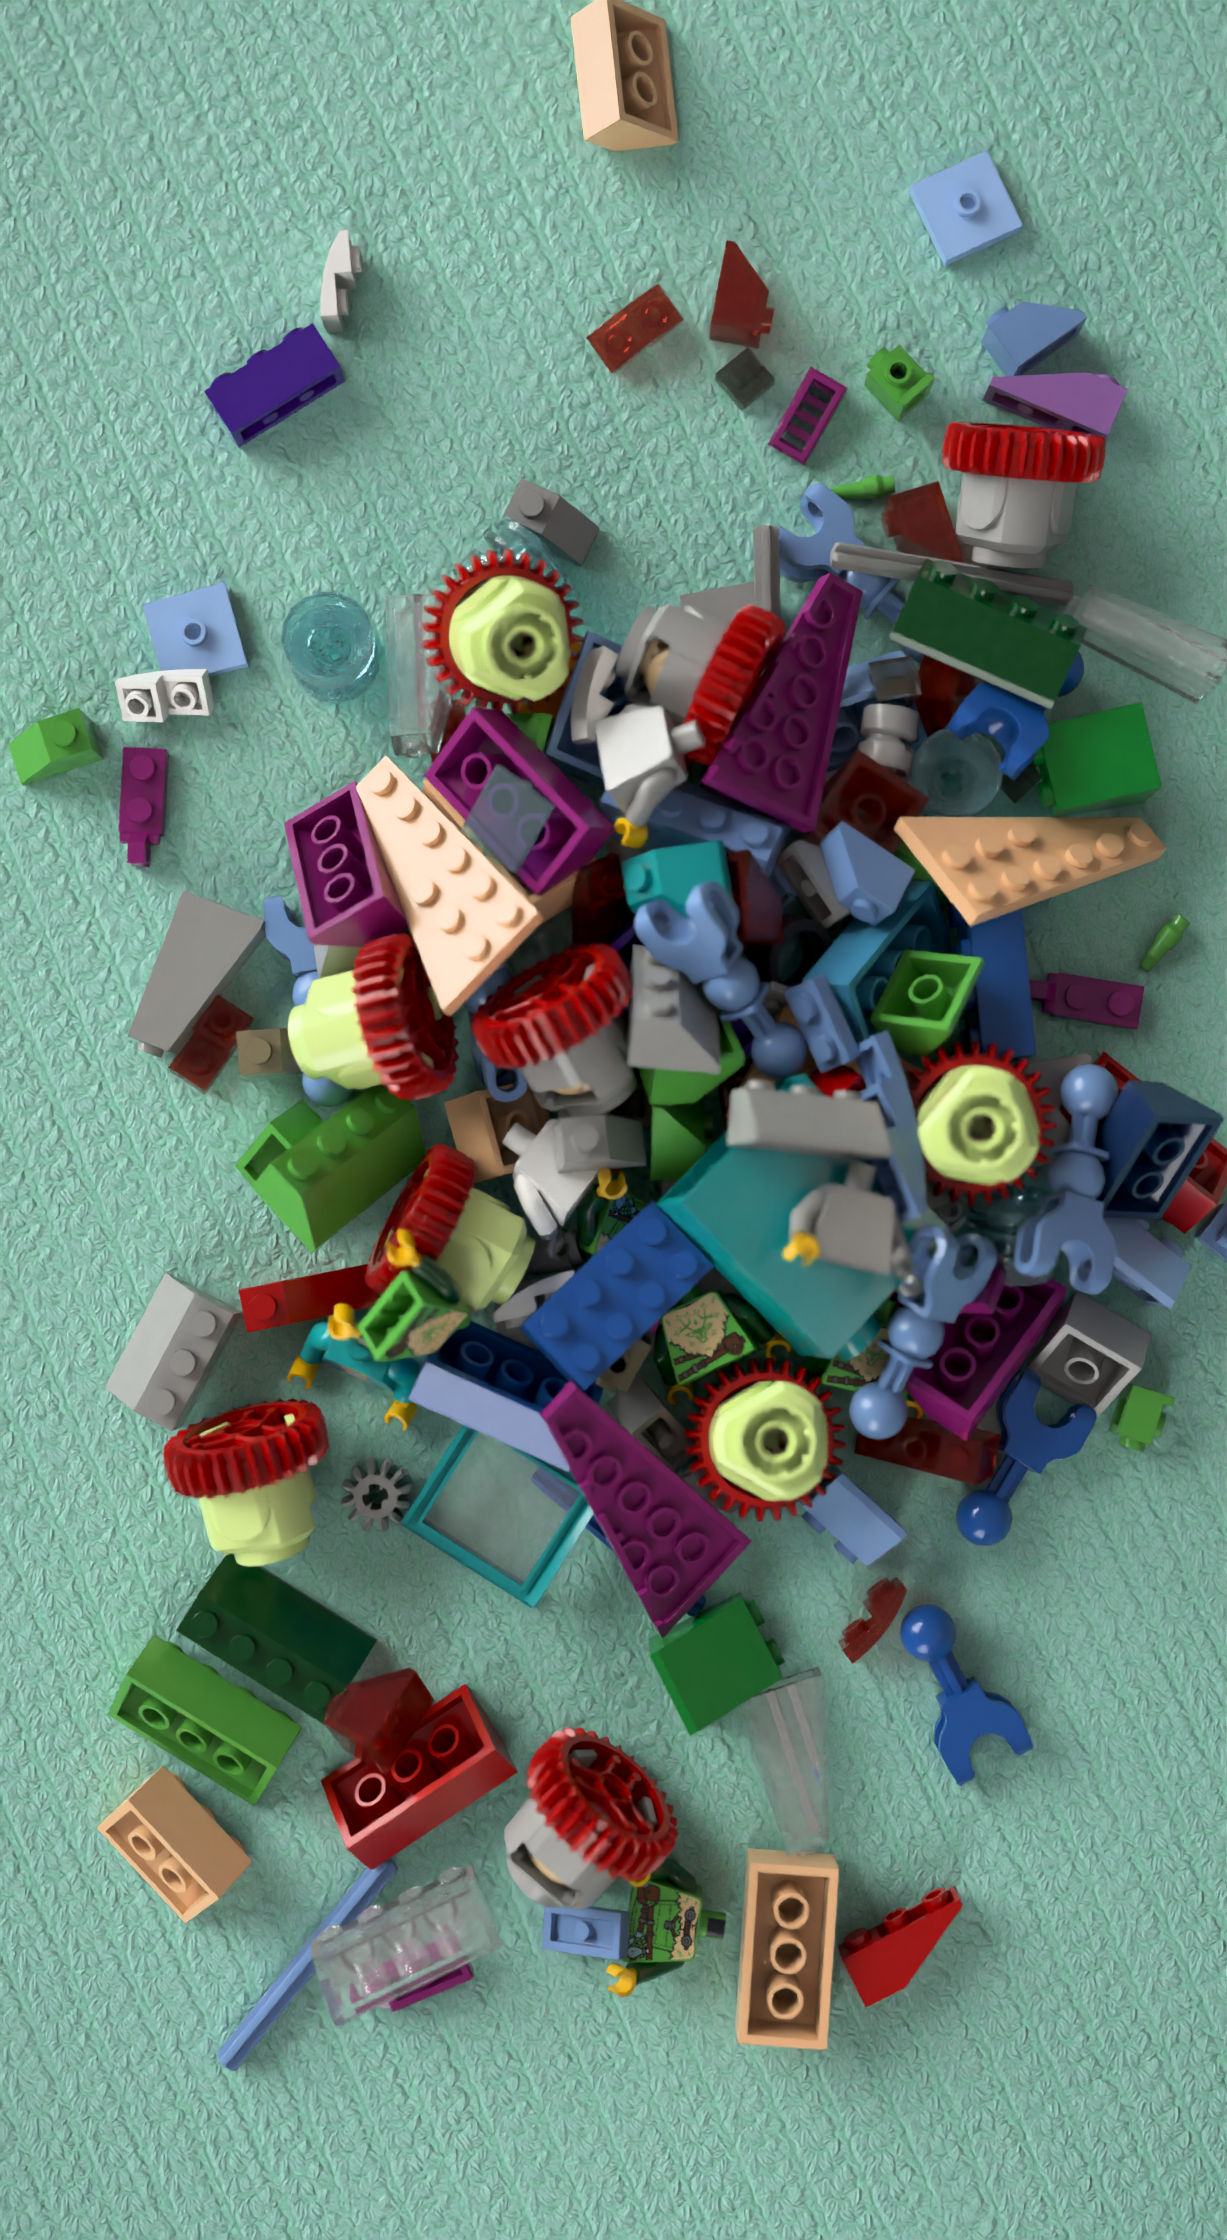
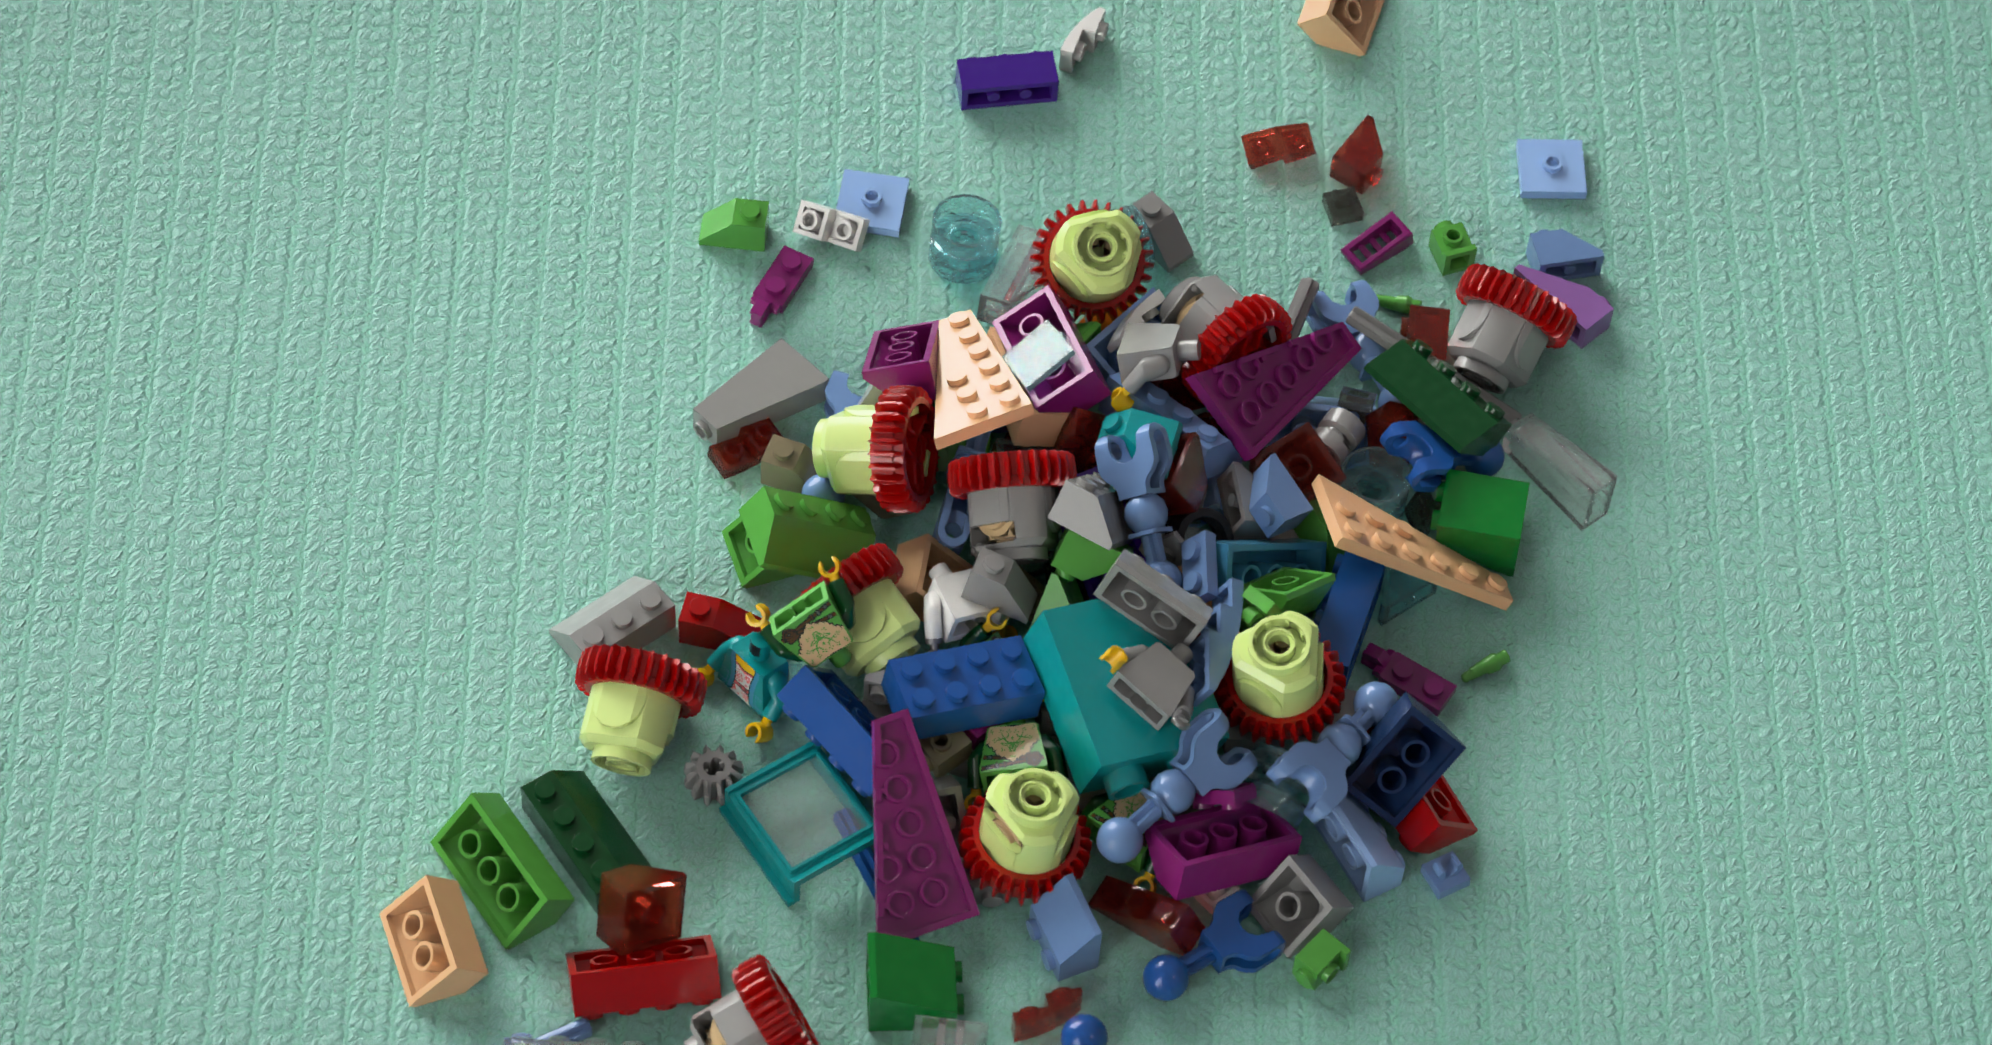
camera: 15 degrees right, 30 degrees down
(922, 1057) = (1258, 607): none -> bright green tile

